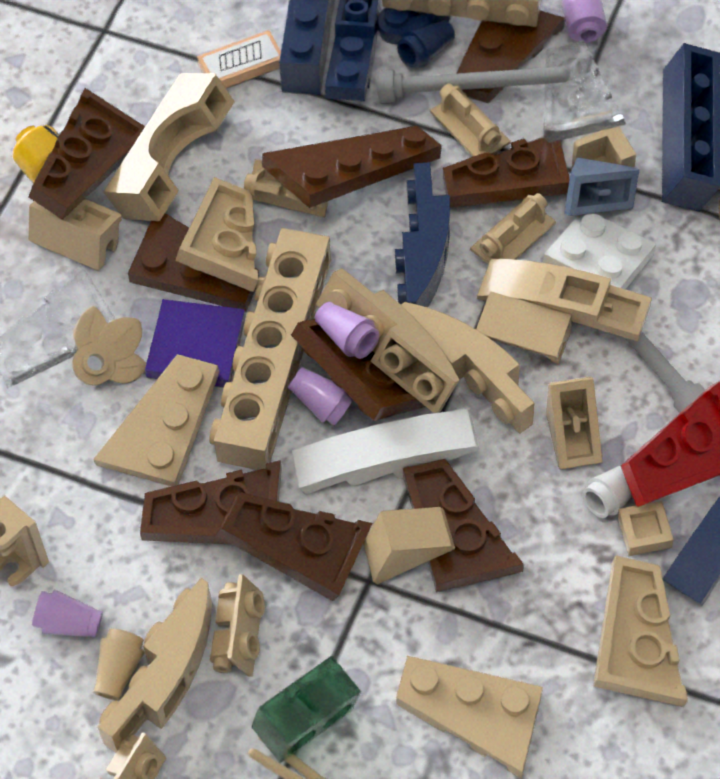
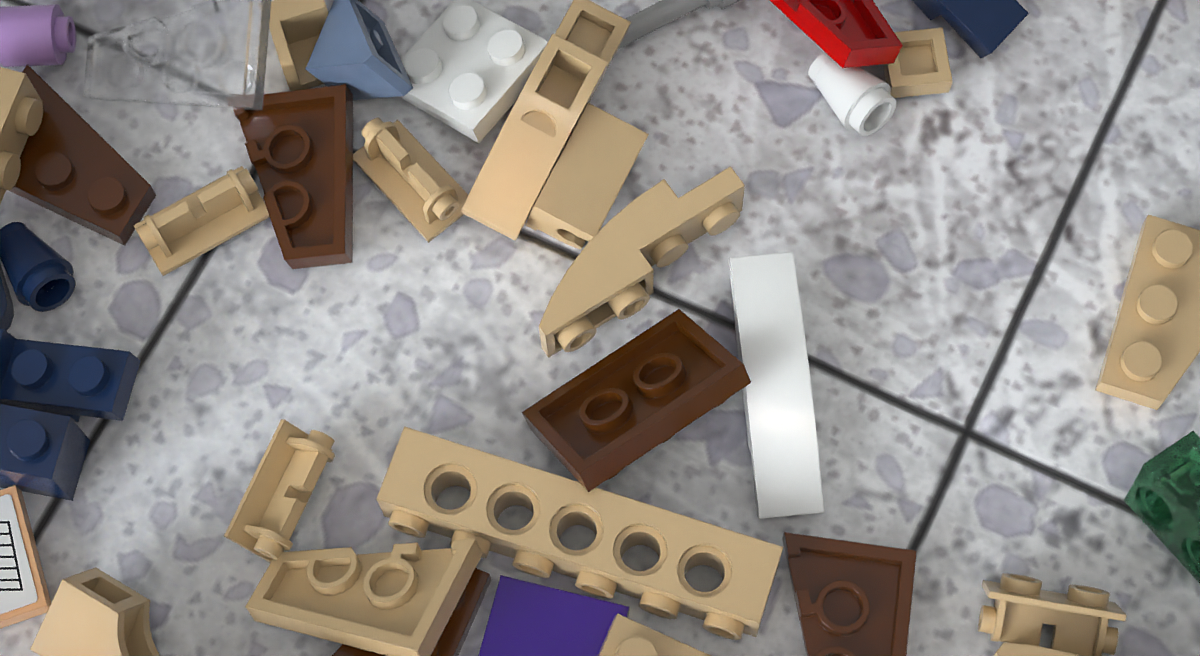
camera: 85 degrees left, 10 degrees up
(298, 543) = (928, 513): reddish brown wing -> none
(320, 395) = (678, 466): lavender cone -> none
(345, 165) = (264, 397): reddish brown wing -> none
(349, 330) = (598, 402): lavender cone -> none
(394, 85) = (109, 319): light grey piece -> none
(403, 347) = (610, 337): tan slope -> none
(406, 540) = (937, 363): tan slope -> none
(427, 242) = (440, 297): dark blue slope -> none
(478, 543) = (909, 304): reddish brown wing -> none
(574, 422) = (752, 129): tan slope -> none
(636, 636) = (1081, 96): tan wing -> none

